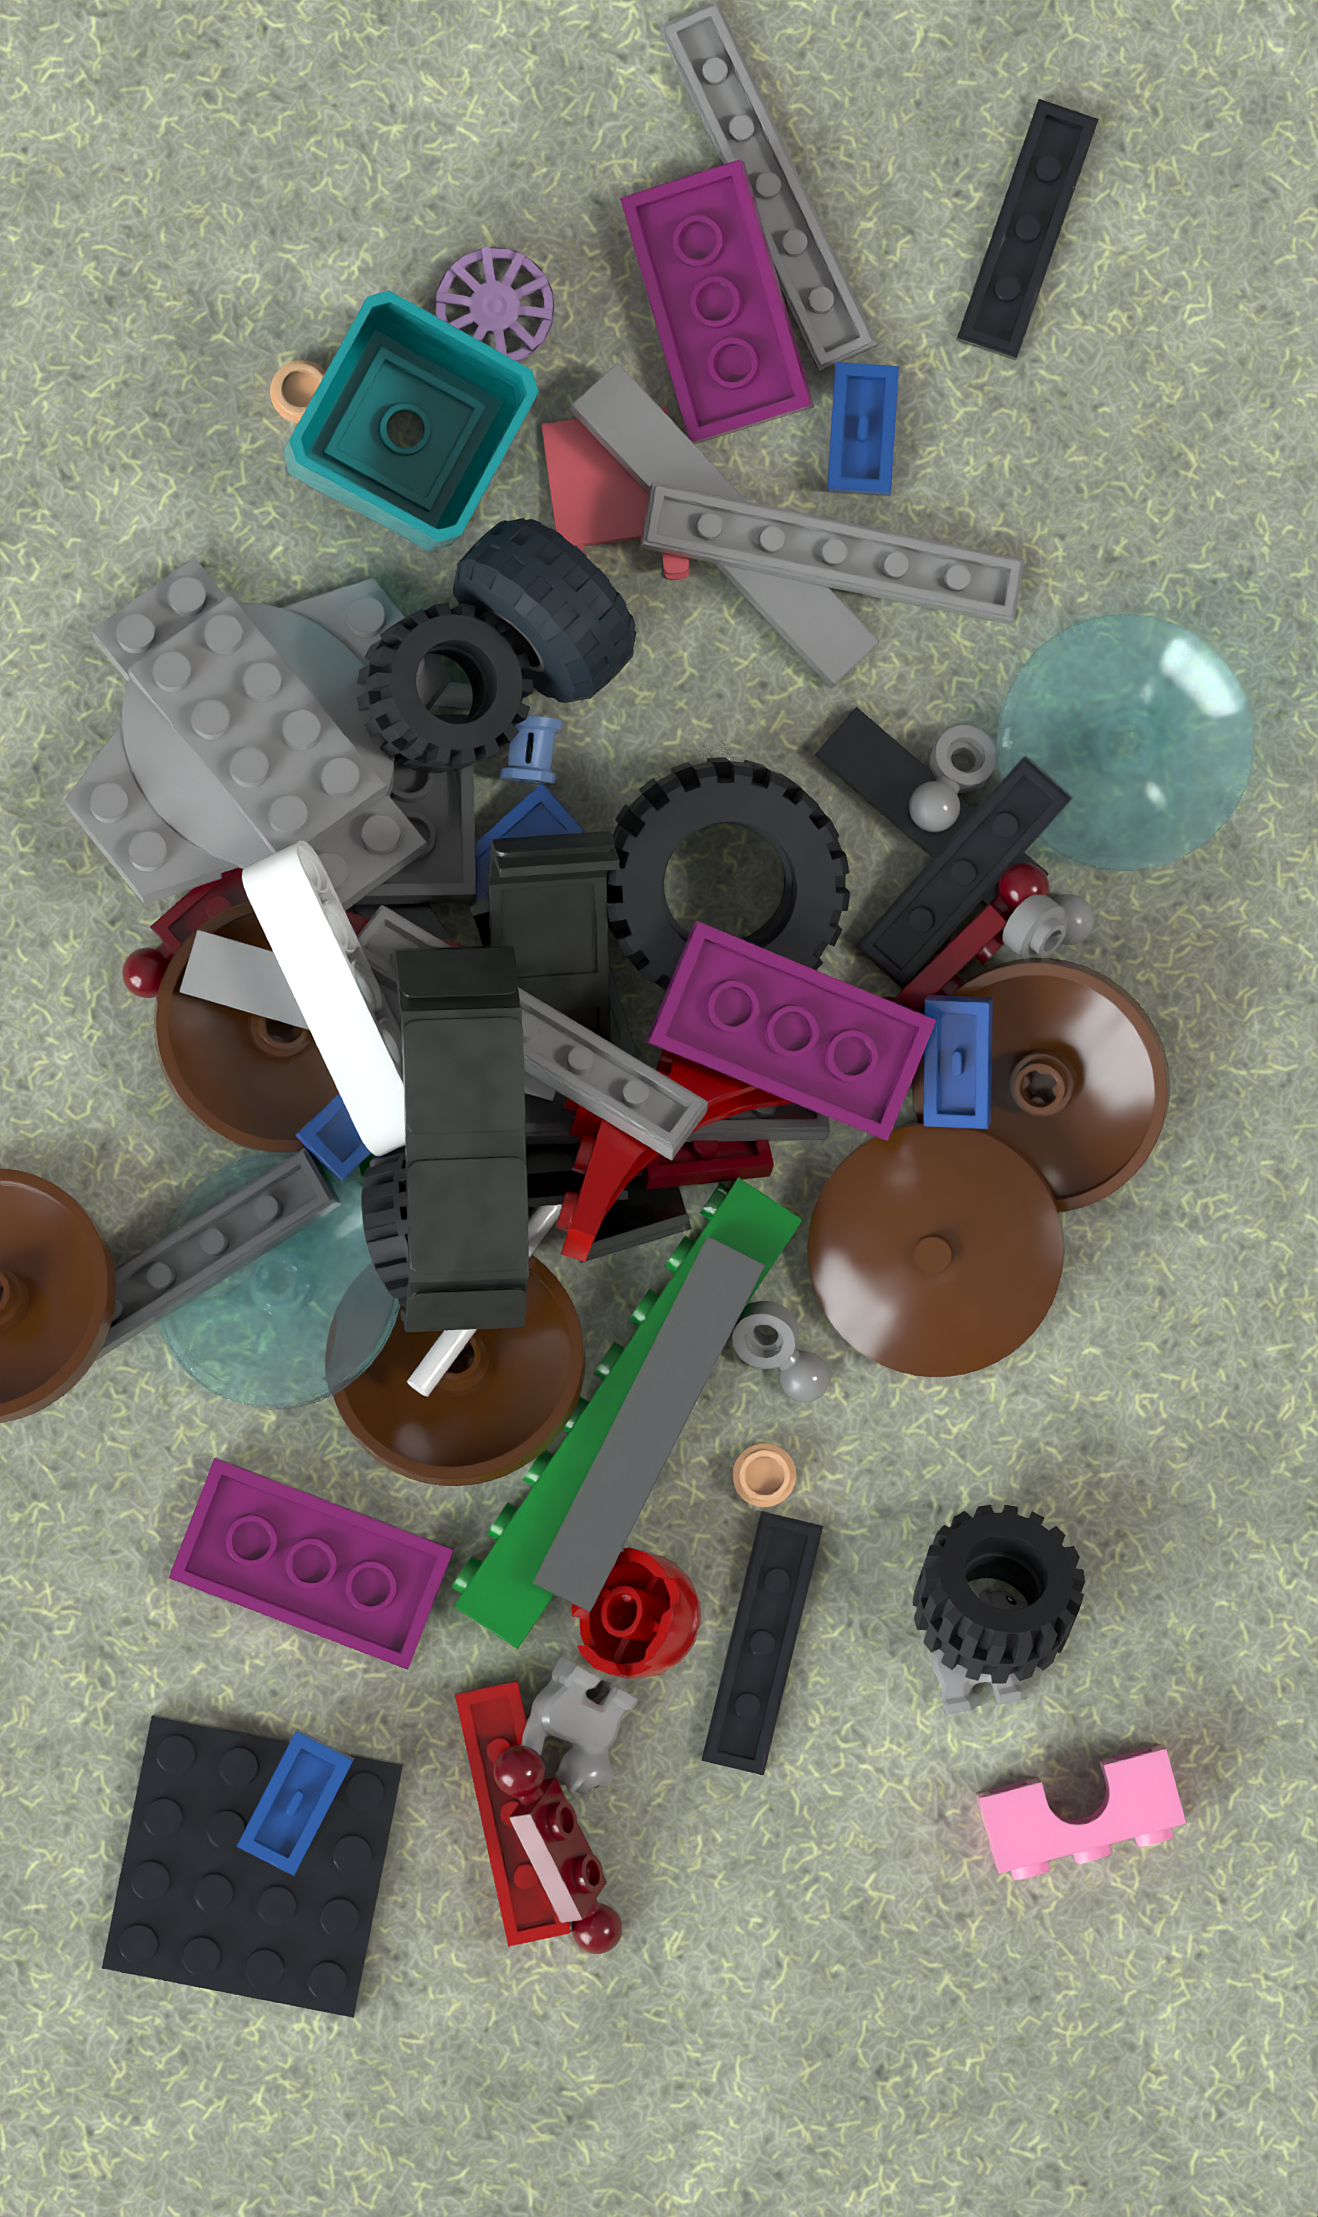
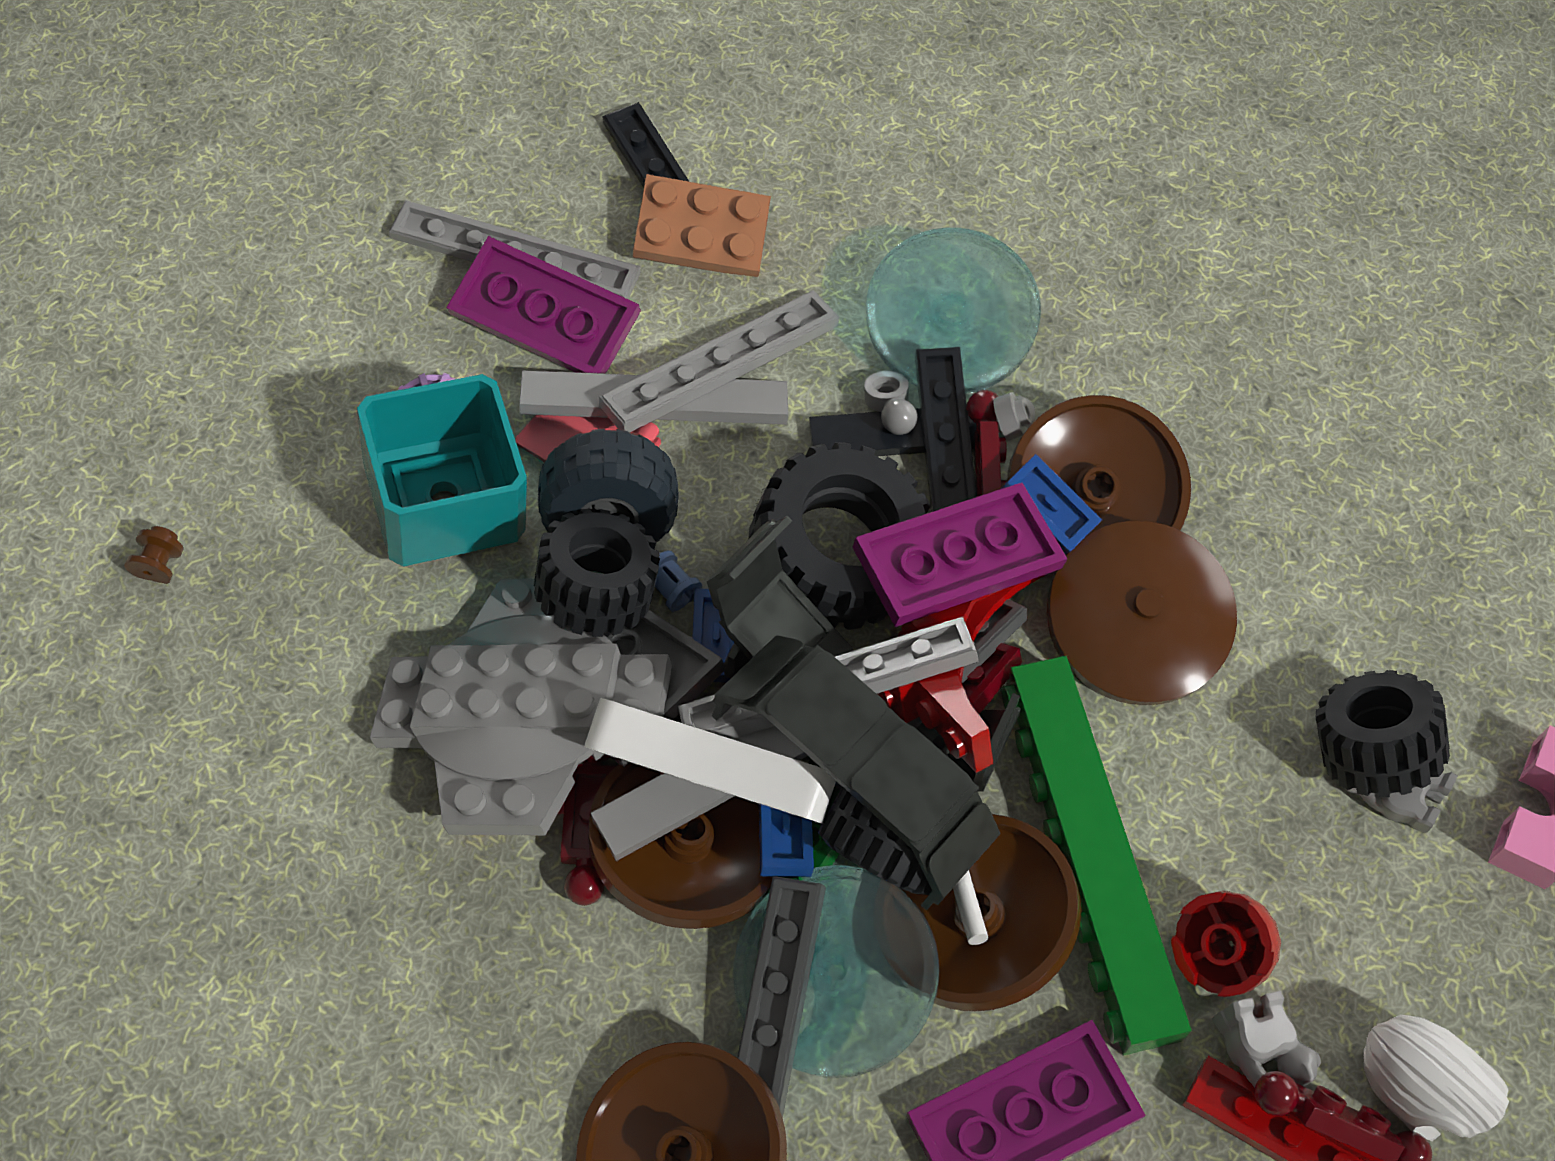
camera: 50 degrees left, 25 degrees down
(73, 210) = (157, 547): none -> reddish brown wheel
(294, 388) = (365, 533): light nougat plate -> none
(648, 1424) = (1118, 836): dark grey tile -> none
(673, 1898) = (1432, 1078): none -> white hair
(762, 1643) = (1298, 901): black tile -> none
(764, 1475) = (1194, 811): light nougat plate -> none
(802, 1374) = (1151, 743): light grey plate -> none
(862, 429) = (674, 303): blue plate -> none
(988, 364) = (701, 226): none -> nougat plate

